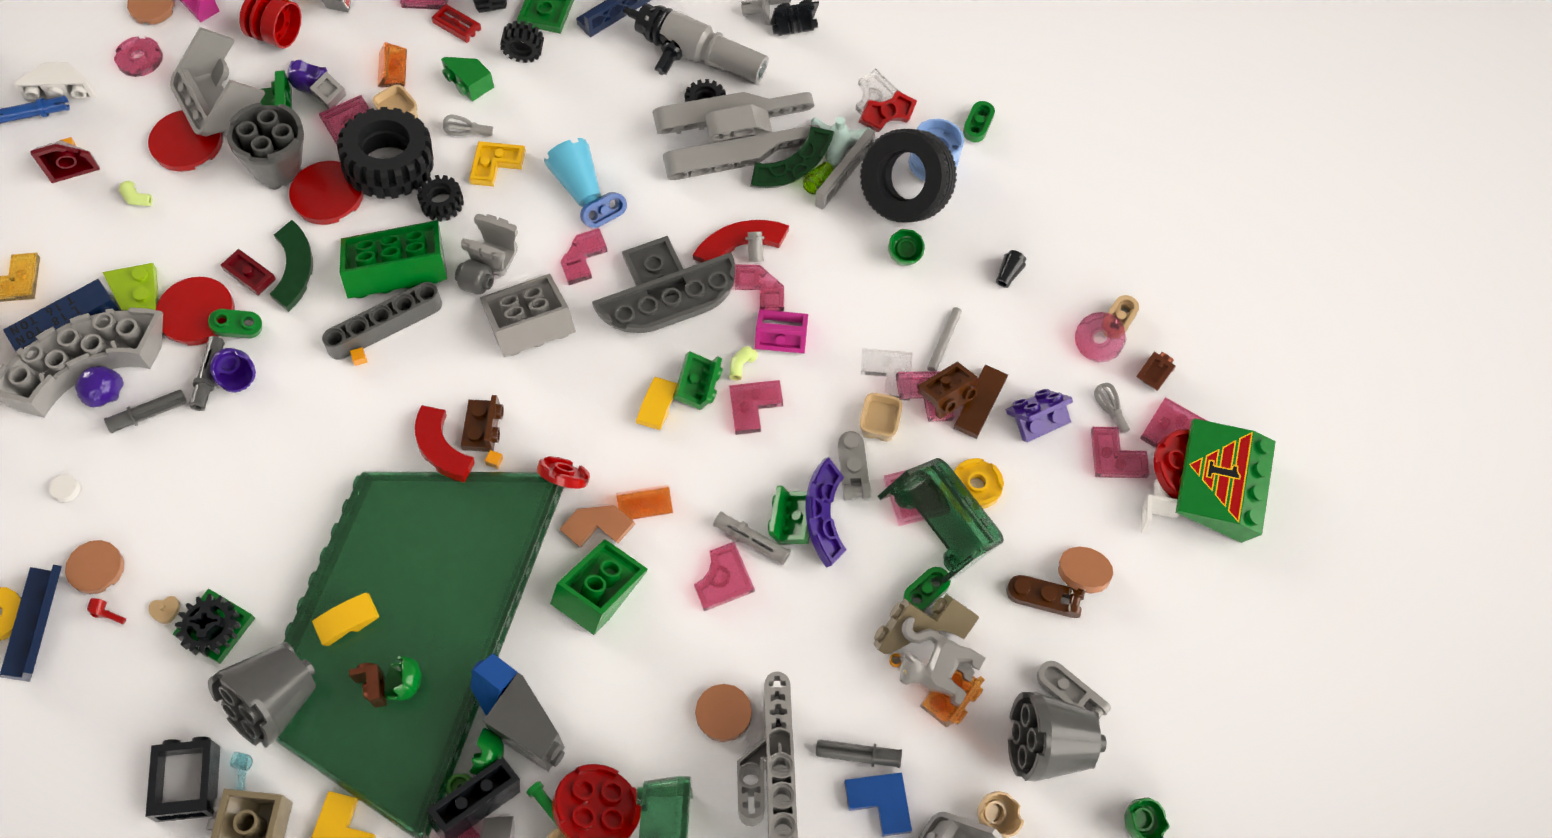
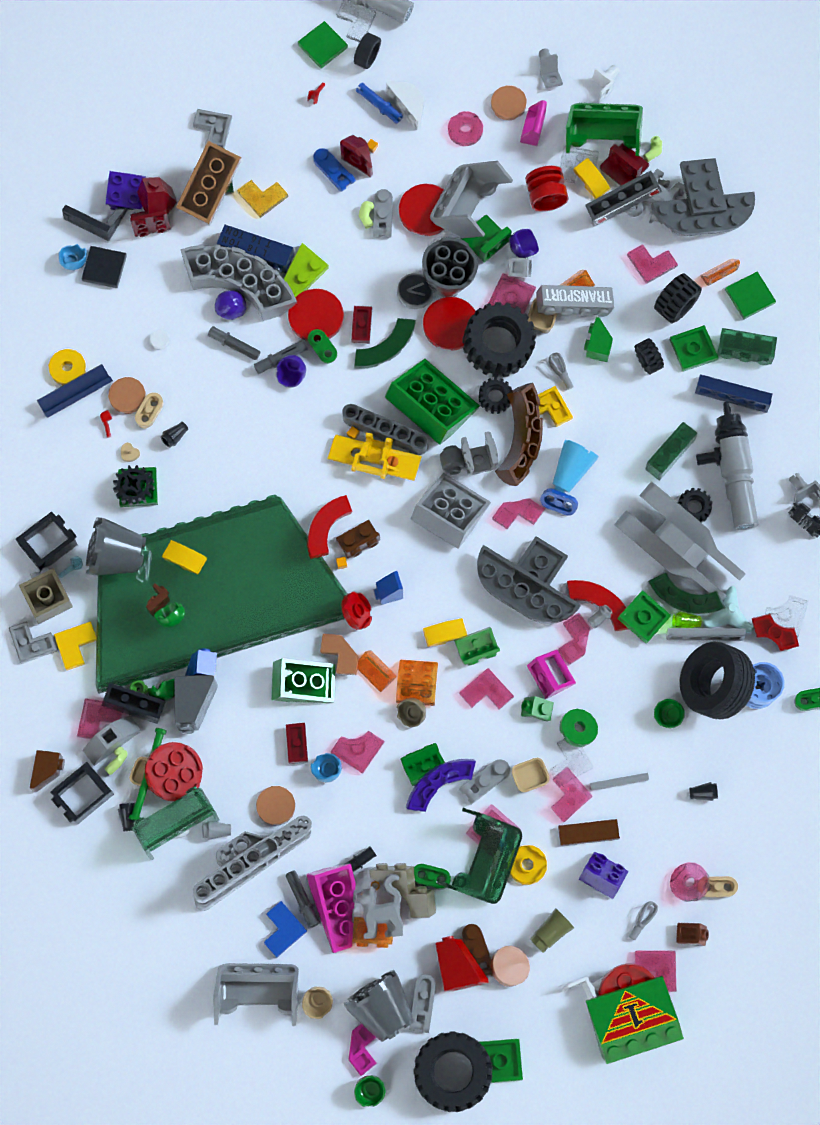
camera: 60 degrees right, 10 degrees up
(55, 195) = (332, 169): none -> blue plate
(135, 555) = (148, 410): none -> tan plate
(150, 180) = (383, 213): none -> light grey plate
(189, 544) = (174, 434): none -> black cone
(260, 203) = (414, 291): none -> black tile
(406, 66) = (575, 300): none -> light grey brick
(425, 335) = (377, 452): none -> yellow piece
(453, 25) = (639, 314): red tile -> none
(504, 194) = (526, 436): none -> reddish brown brick
(565, 422) = (389, 588): none -> blue slope
(633, 84) = (671, 451): none -> clear green brick
(666, 639) = (296, 743): none -> dark red plate
(693, 465) = (417, 681): none -> clear orange bracket
(704, 804) = (215, 829): none -> light grey cone
(720, 623) = (326, 767): none -> dark azure hair
(723, 490) = (411, 712): none -> dark tan hair
(725, 522) = (394, 749): light grey pin -> none
(739, 359) = (510, 661): yellowish green arm -> none
(786, 210) = (644, 617): none -> green tile
(808, 365) = (537, 708): none -> bracket
(852, 330) = (585, 720): none -> green tile
(855, 660) = (361, 859): none -> black axle
(882, 716) = (333, 897): none -> dark pink wedge
(950, 389) = (577, 806): reddish brown bracket -> none
(1054, 622) = (458, 965): none -> red slope
(1071, 501) = (551, 931): none -> olive plant
(1090, 808) = (358, 1055): none -> dark pink tile
(1111, 460) = (603, 942): clear pink tile -> none
(1188, 650) = (505, 1059): none -> green tile
(1204, 681) = (426, 1061): none -> black tyre

